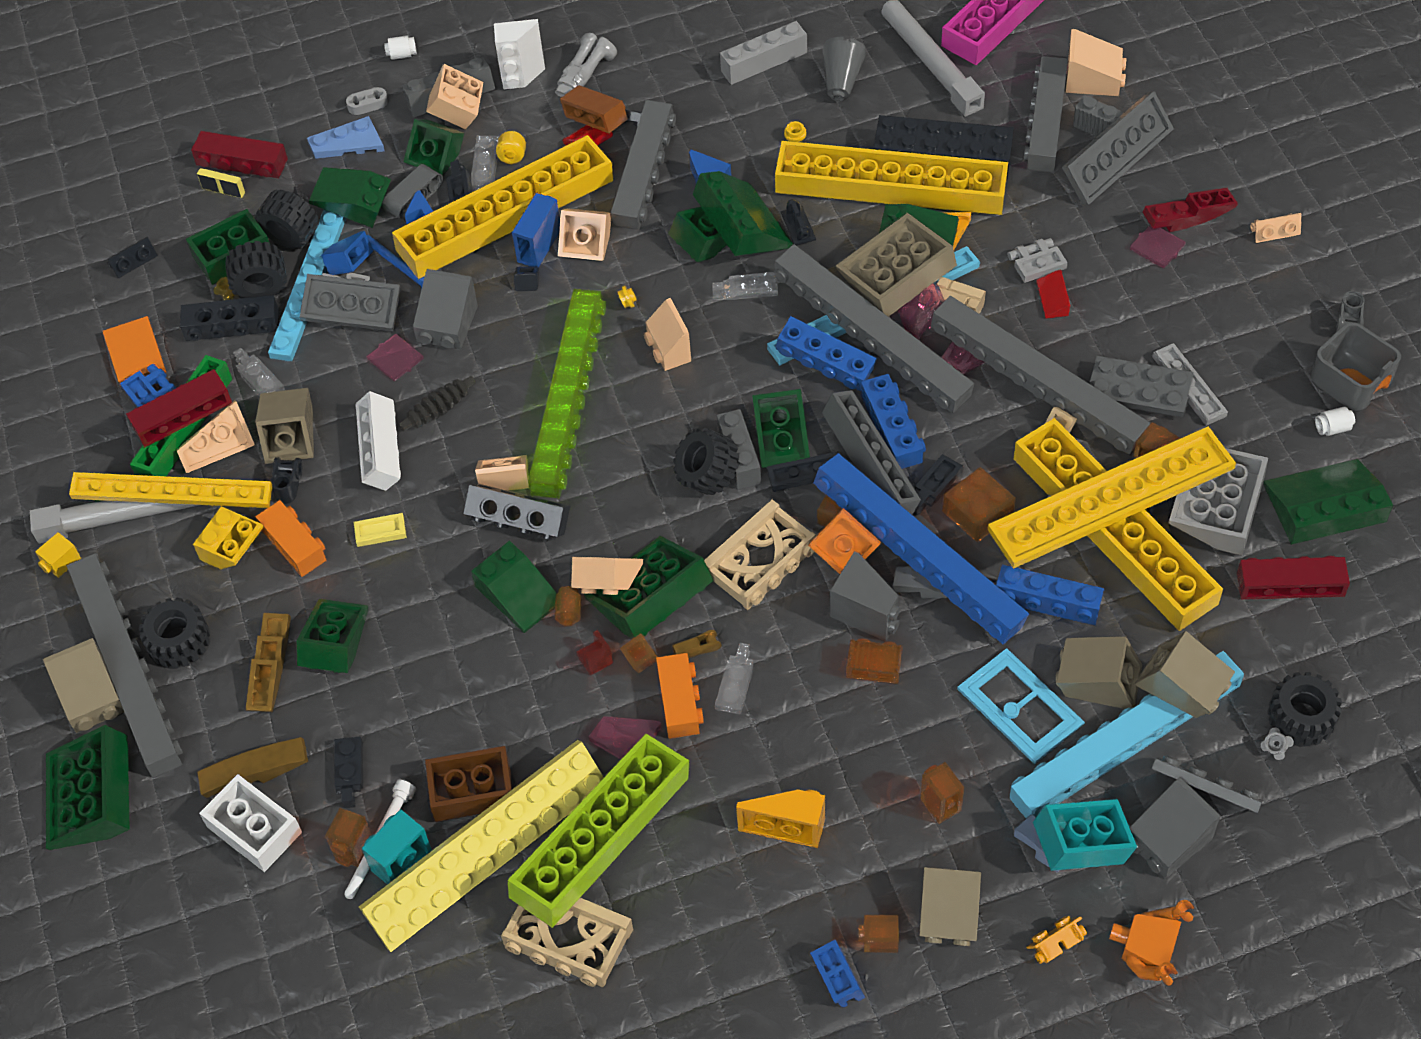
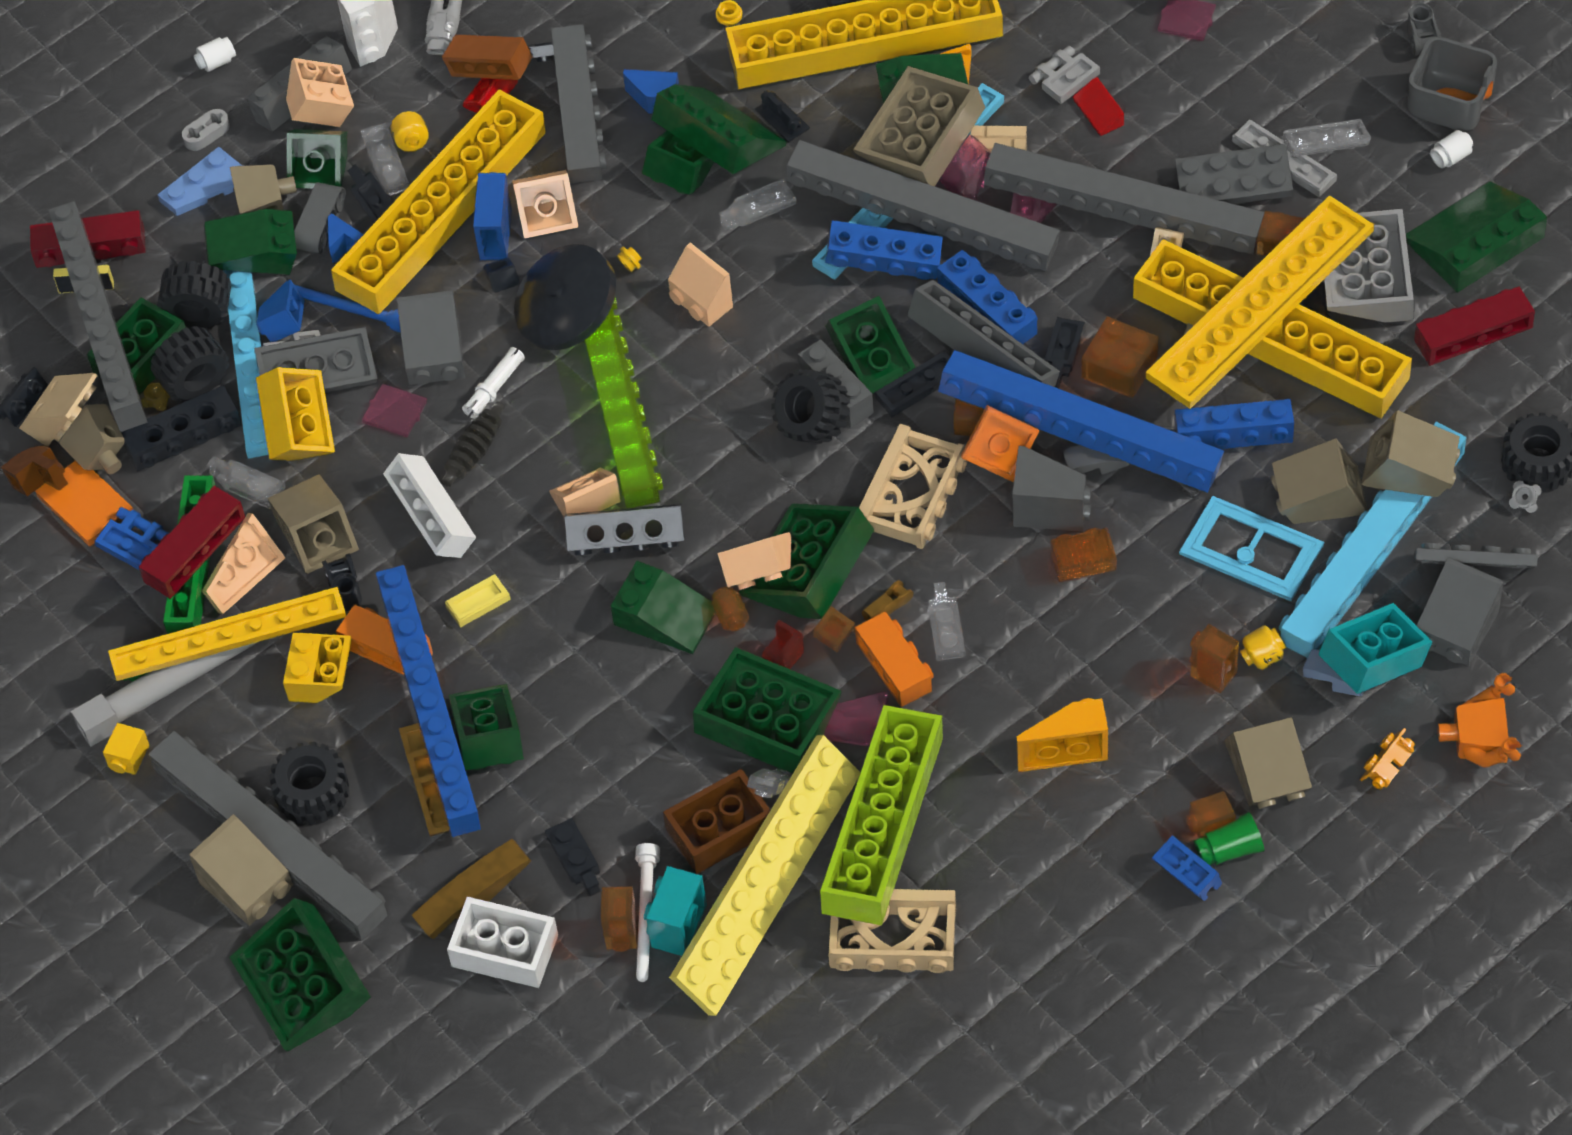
camera: 20 degrees left, 0 degrees up
(107, 313) = (34, 468): none -> reddish brown brick
(145, 273) = (58, 407): none -> tan slope
(160, 305) = (94, 439): none -> dark tan torso
(203, 213) = (97, 316): none -> dark grey brick
(289, 601) = (428, 701): none -> blue brick
(314, 334) = (294, 414): none -> yellow slope
(379, 155) = (259, 188): none -> dark tan torso
(470, 364) = (486, 391): none -> white pin
(520, 765) = (768, 782): none -> clear hinge
(552, 701) = (764, 710): none -> dark green slope
(560, 310) = (565, 297): none -> black dish
(885, 962) = (1230, 841): none -> green plant
(990, 797) = (1262, 647): none -> yellow head
(1230, 378) = (1326, 137): none -> clear plate

